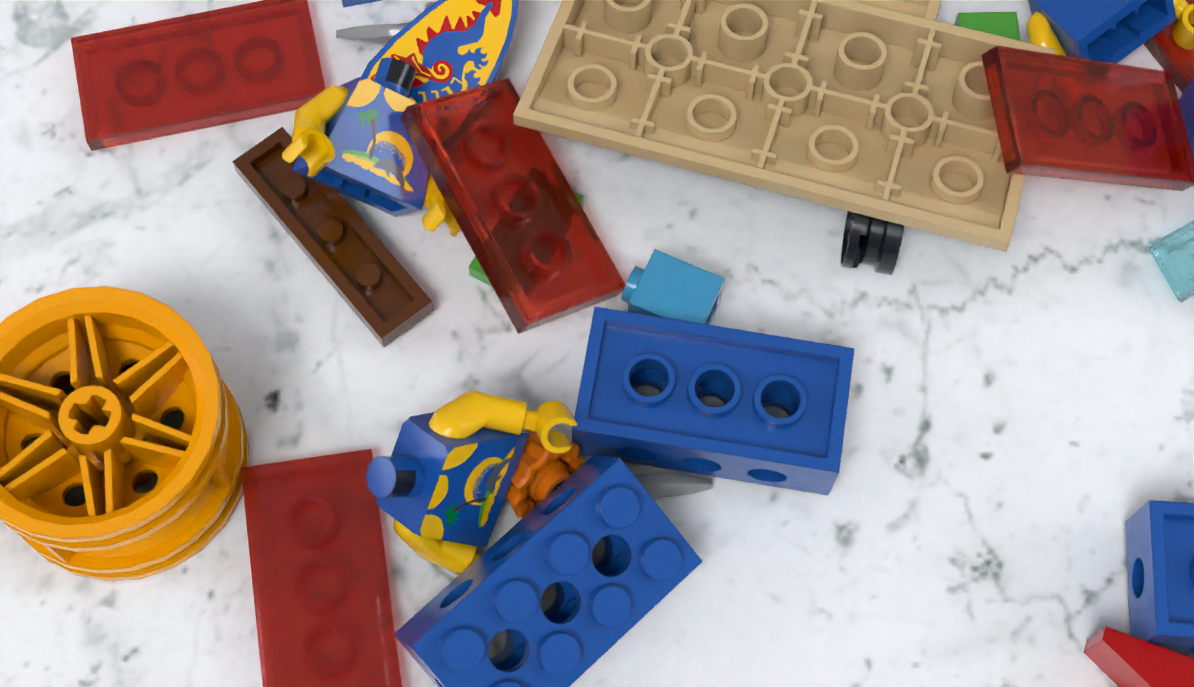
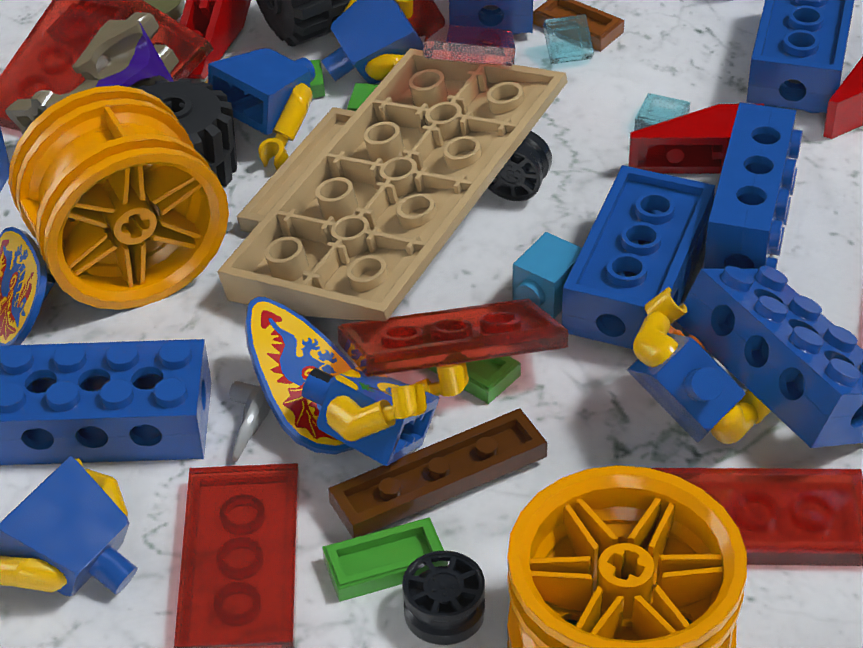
camera: 75 degrees left, 25 degrees down
(156, 264) = (444, 601): none -> black wheel
(215, 208) = (379, 558): none -> bright green tile
(845, 528) = (754, 189): none -> blue brick
(1002, 476) = (685, 143): none -> red slope
(1061, 409) = (659, 109): none -> clear light blue tile

